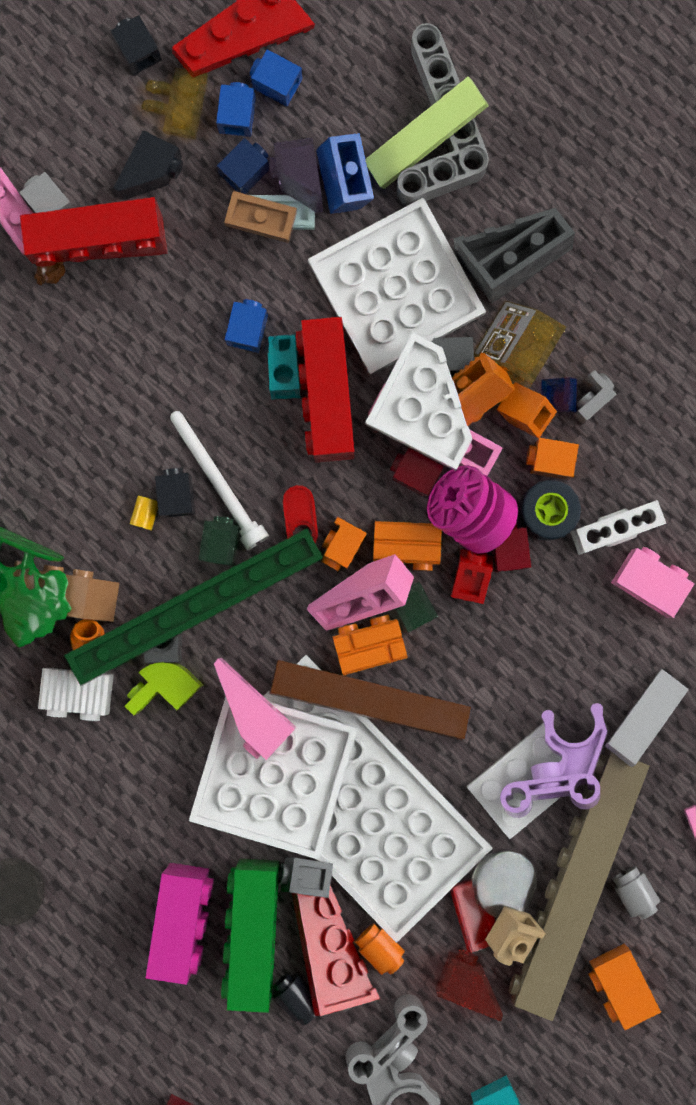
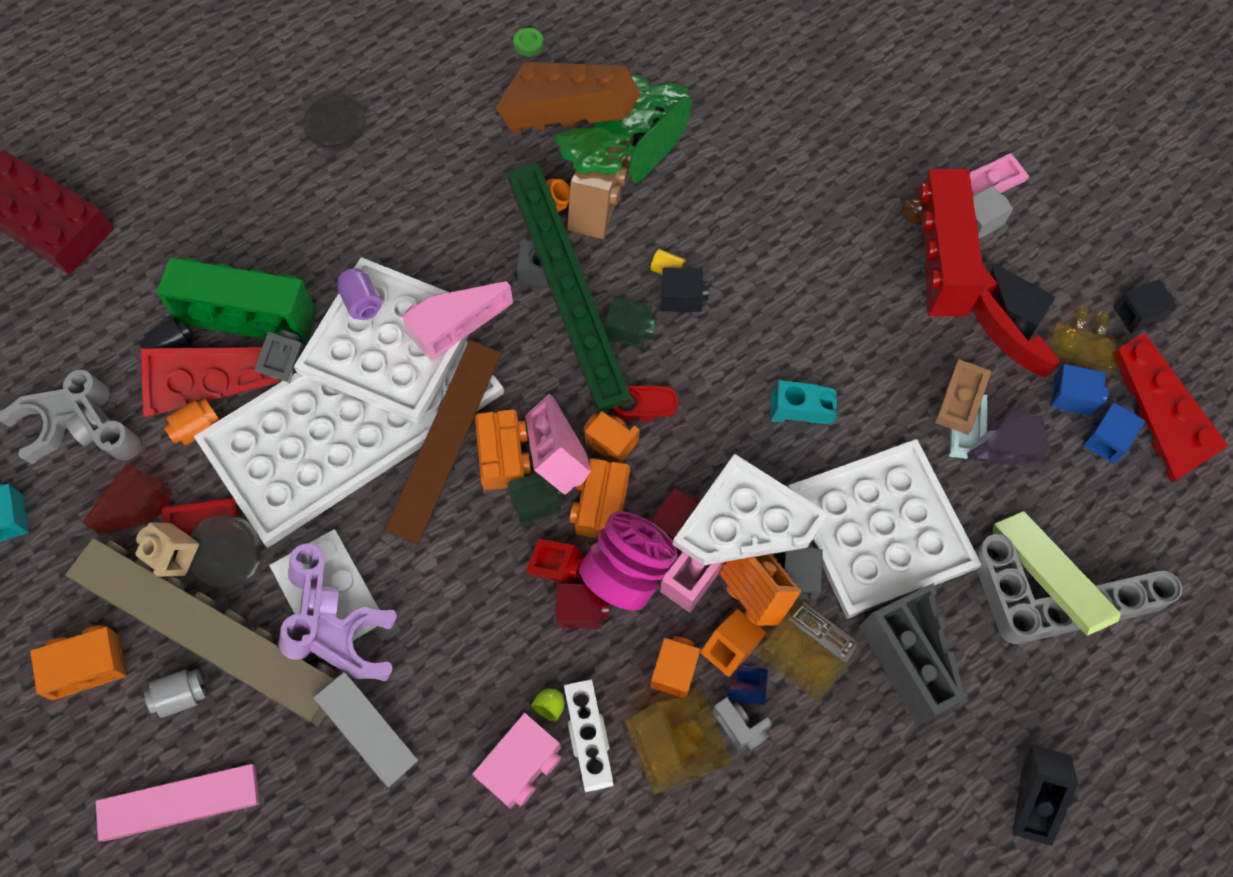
camera: 95 degrees right, 20 degrees down
(63, 694) = (496, 196): white brick -> none
(169, 680) = (499, 256): lime brick -> none
(179, 923) = (266, 239): dark pink brick -> none
(203, 152) = (1030, 354): none -> red slope
(238, 810) = (359, 294): none -> medium lavender brick
(244, 166) = (1017, 389): dark blue brick -> none
(246, 325) = (849, 373): blue brick -> none
(250, 531) = (638, 353): white piece -> none
(328, 390) = (775, 433): red brick -> none
(344, 173) = (1009, 484): blue brick -> none
(560, 509) = (619, 641): black wheel -> none
(597, 563) = (549, 704): none -> lime hinge
(614, 142) = (1044, 794): none -> black slope
(617, 448) = (678, 742): none -> clear yellow slope

